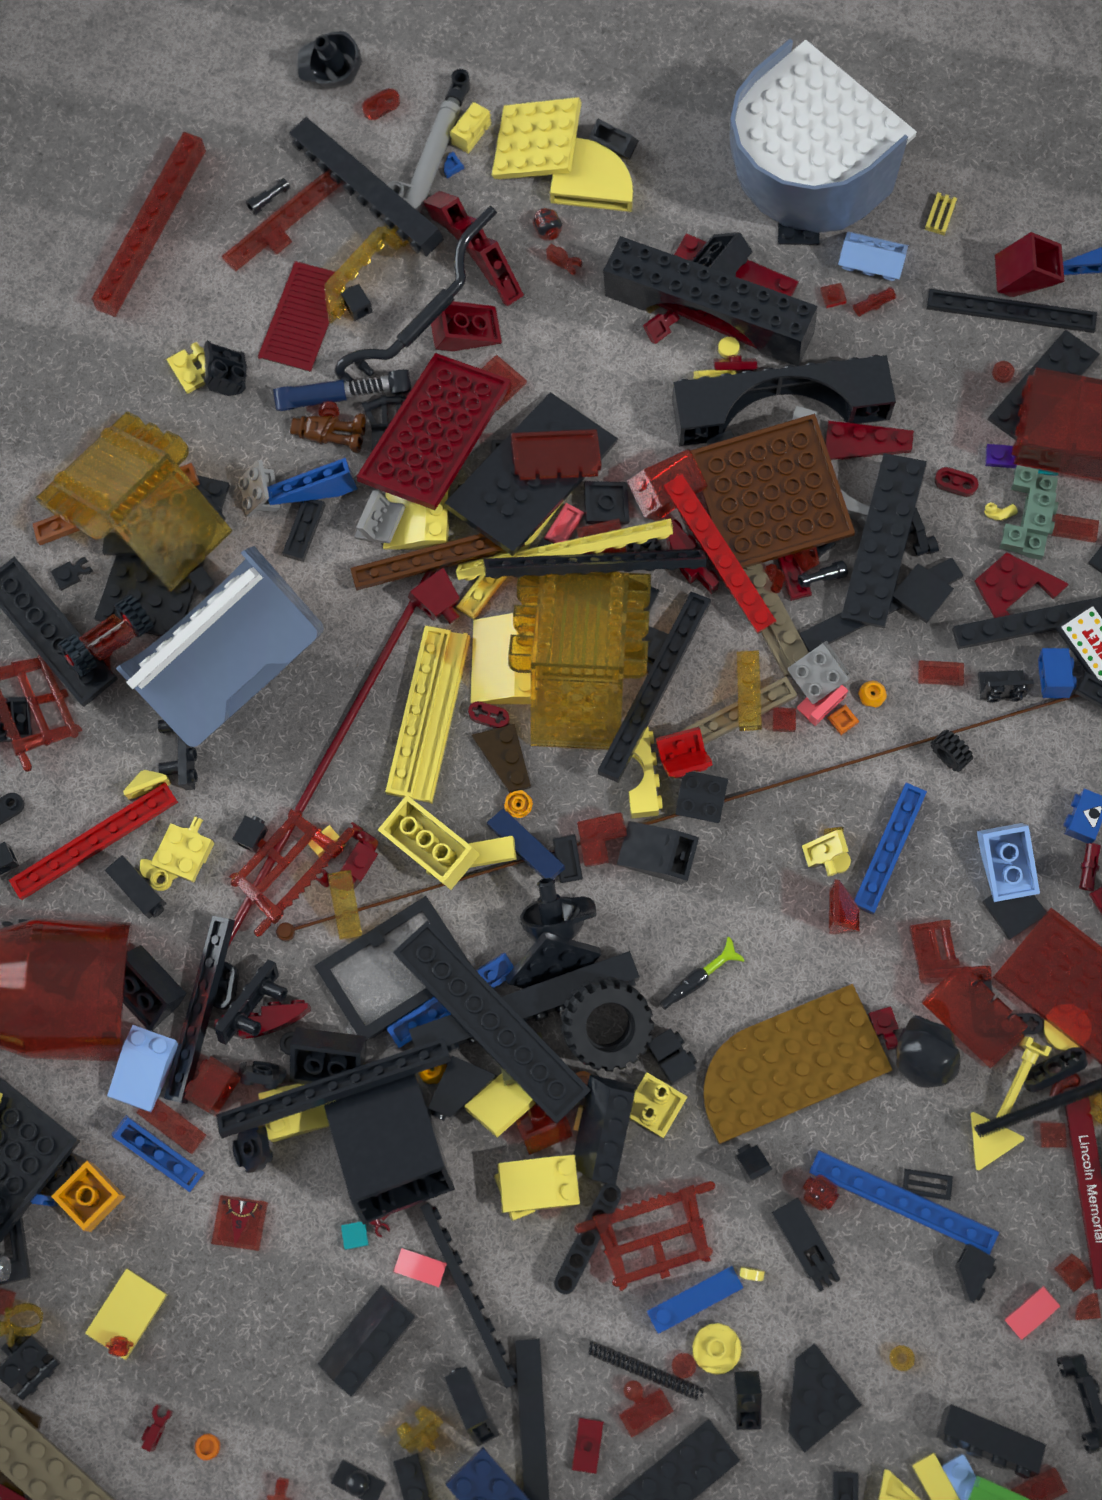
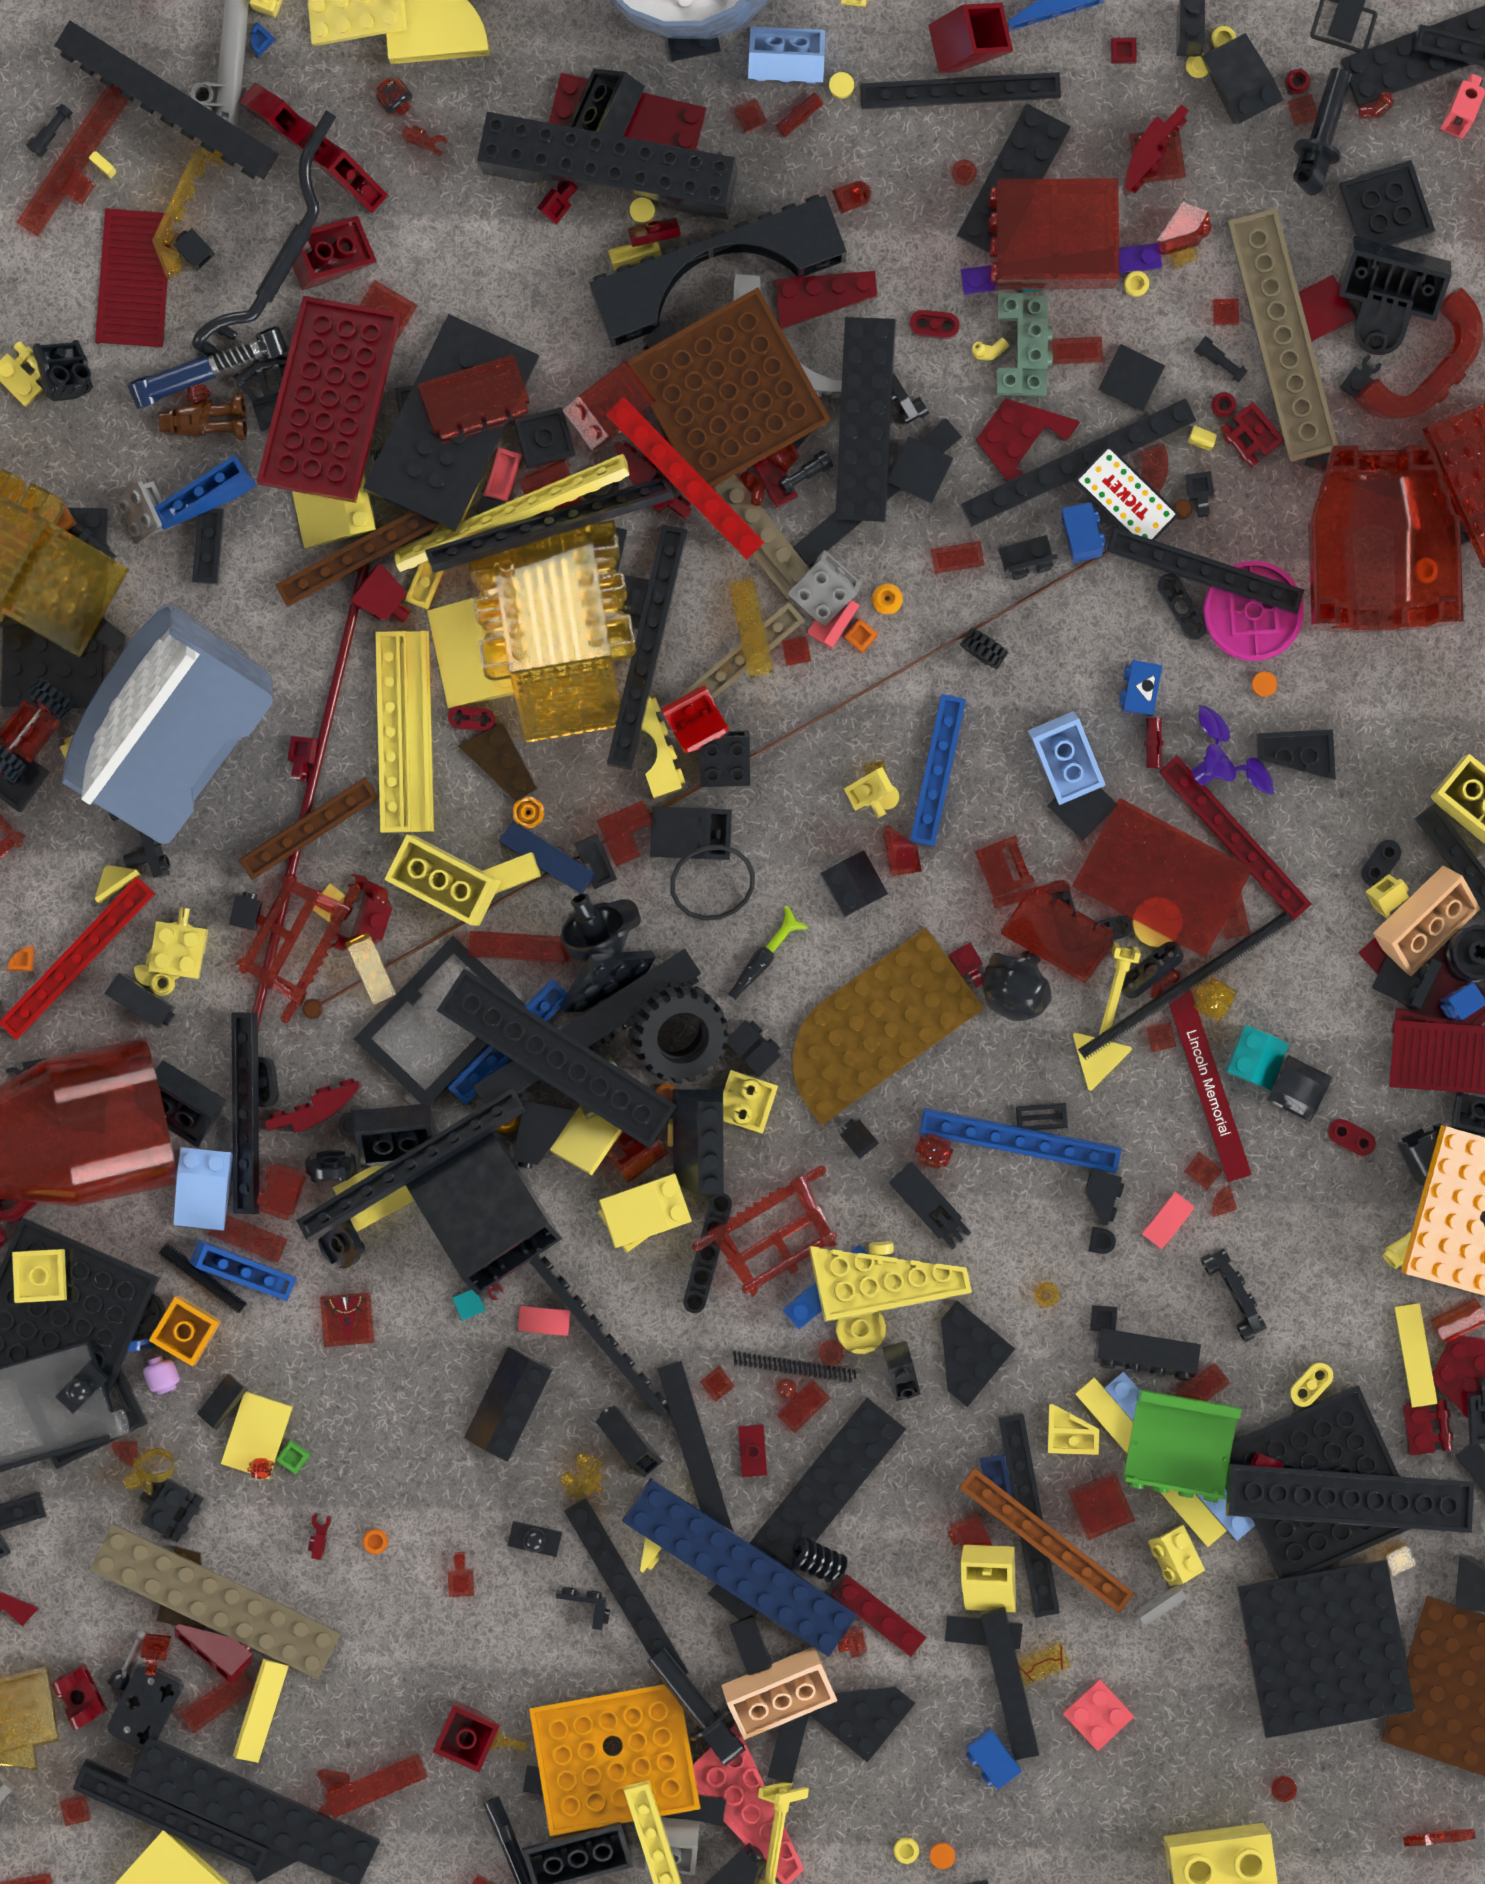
camera: 20 degrees left, 15 degrees up
(47, 833) = (22, 960): none -> orange tile
(55, 1234) = (161, 1375): none -> lavender head
(103, 1273) = (222, 1401): none -> black tile
(119, 1152) = (202, 1278): none -> black axle
(153, 1343) = (293, 1457): none -> bright green tile
(239, 1010) = (296, 1089): black plate -> none
(302, 227) = (102, 164): none -> light yellow tile
(323, 775) = (308, 828): none -> reddish brown tile
(335, 712) = (301, 752): none -> dark red plate
(379, 519) = (293, 518): light grey bracket -> none
(480, 918) = (517, 947): none -> clear red tile
(568, 1369) = (717, 1383): none -> clear red slope
(673, 932) = (699, 850): none -> black piece
(734, 1305) = (873, 1283): none -> light yellow wing
(793, 930) = (854, 883): none -> black slope
(906, 369) = (852, 196): none -> clear red plate
(913, 287) = (841, 85): none -> light yellow tile
(952, 1394) = (1103, 1317): none -> black tile
(964, 1318) = (1101, 1241): none -> black tile

